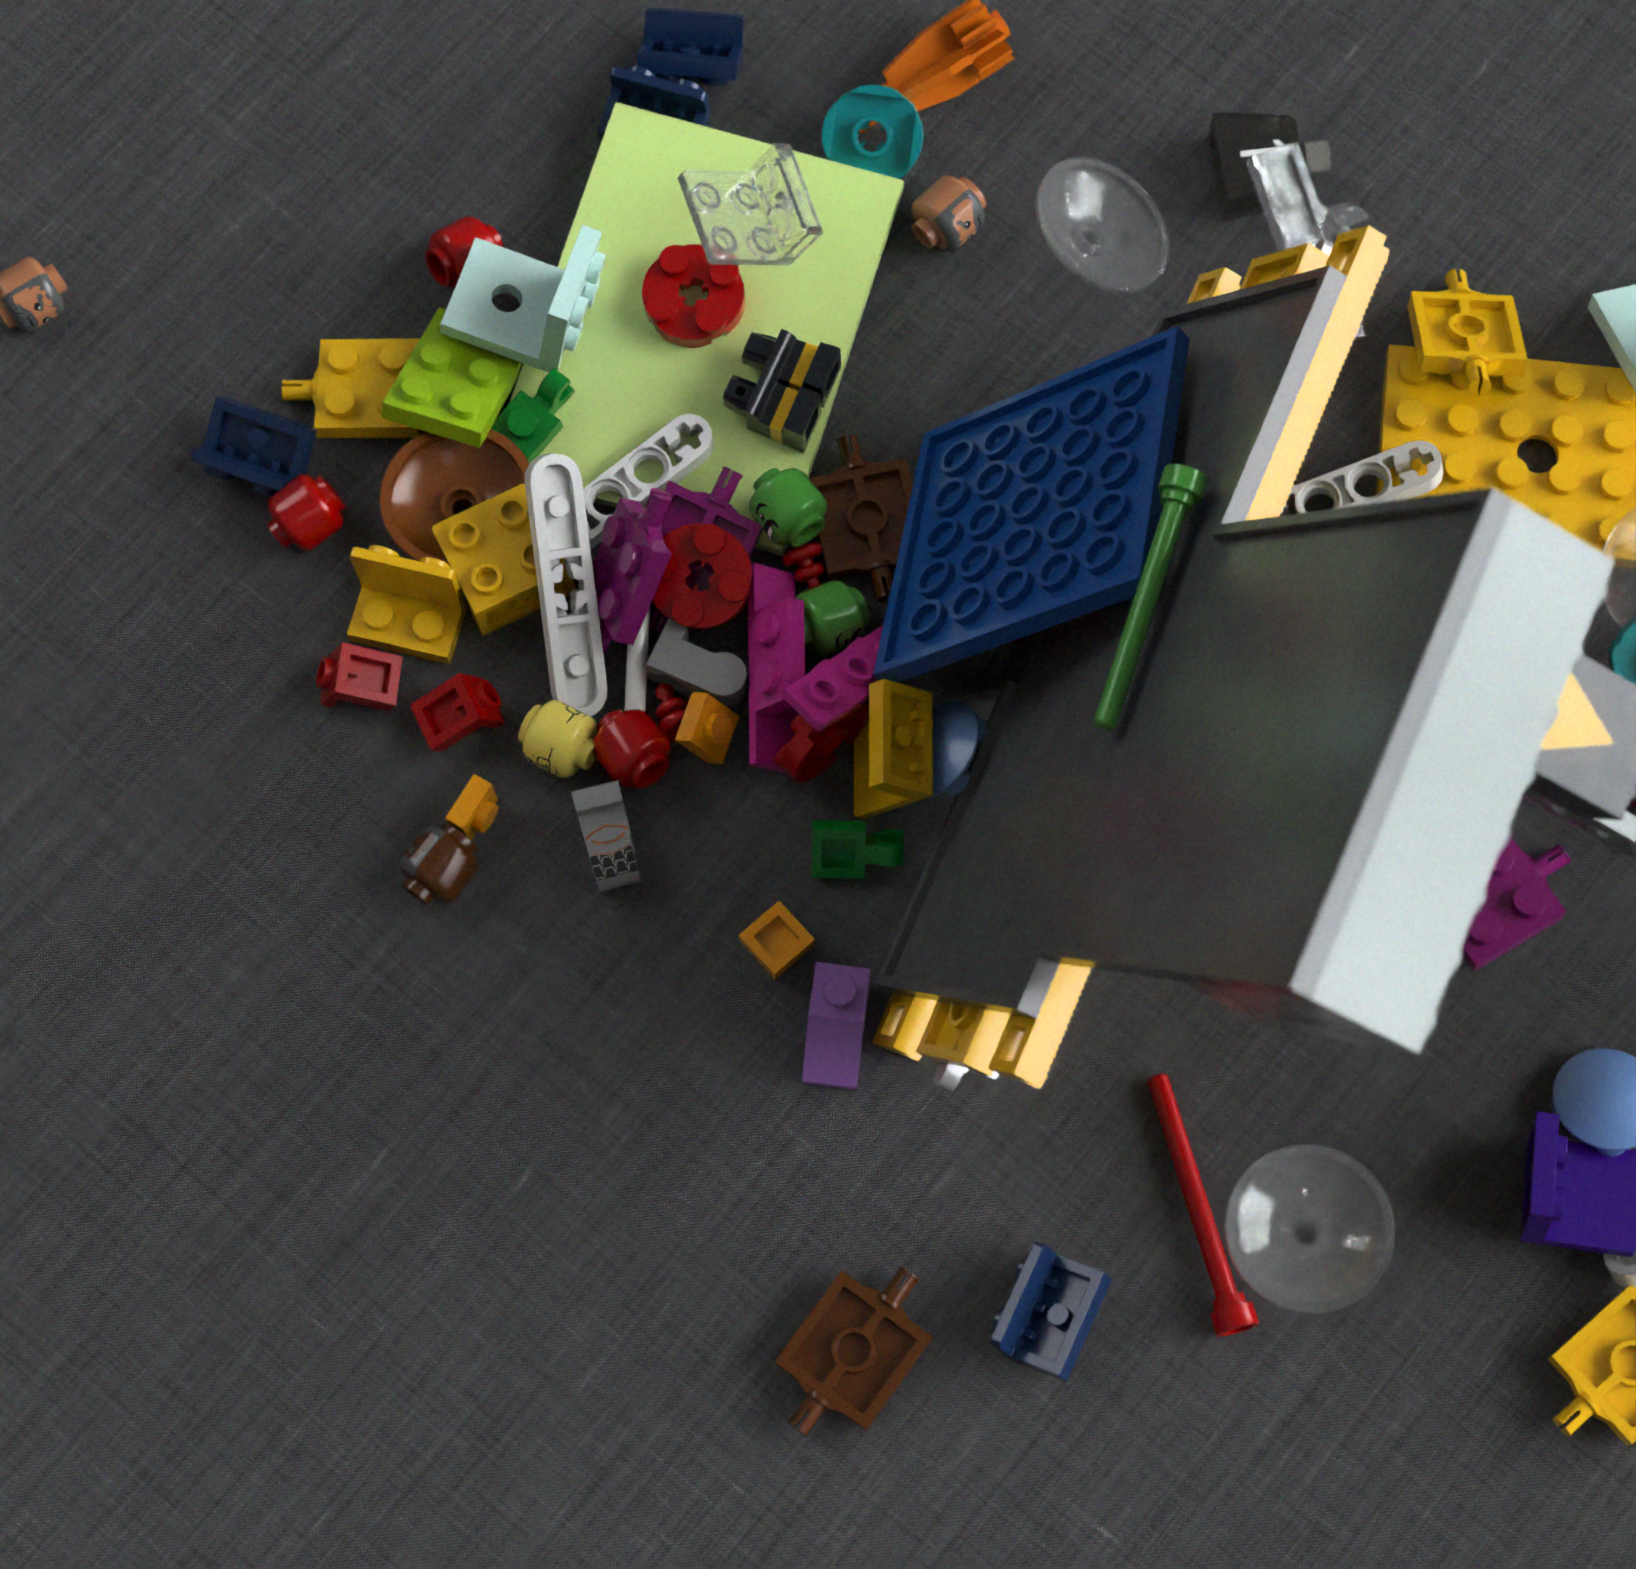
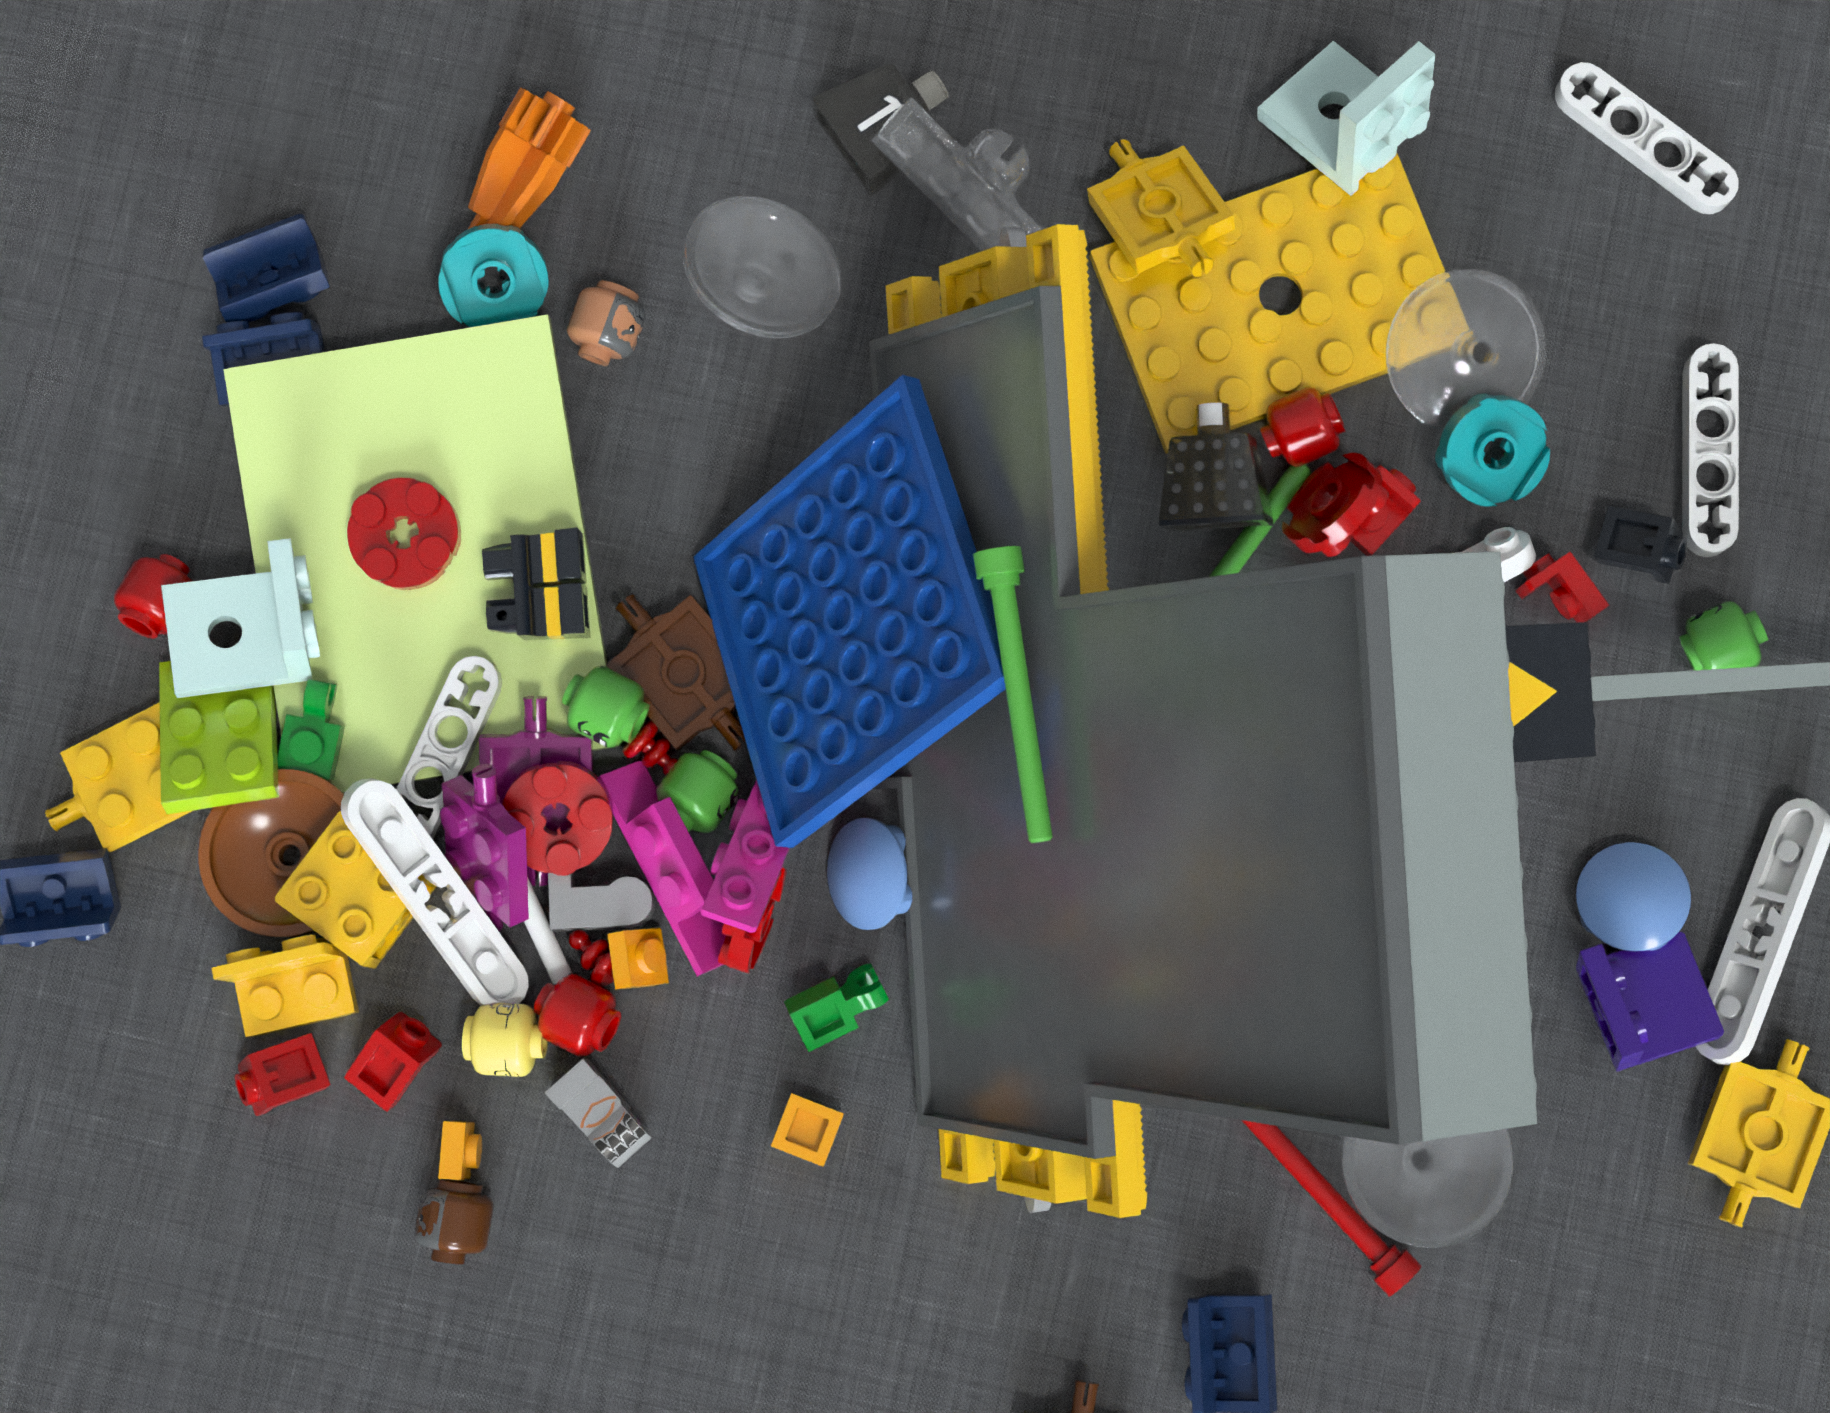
camera: 25 degrees left, 10 degrees up
(305, 512) = (141, 937): red head -> none
(753, 214) = (418, 427): clear bracket -> none
(836, 1025) = (904, 1186): medium lavender slope -> none
(893, 750) = (828, 900): yellow bracket -> none
(1341, 482) = (1133, 436): white beam -> none

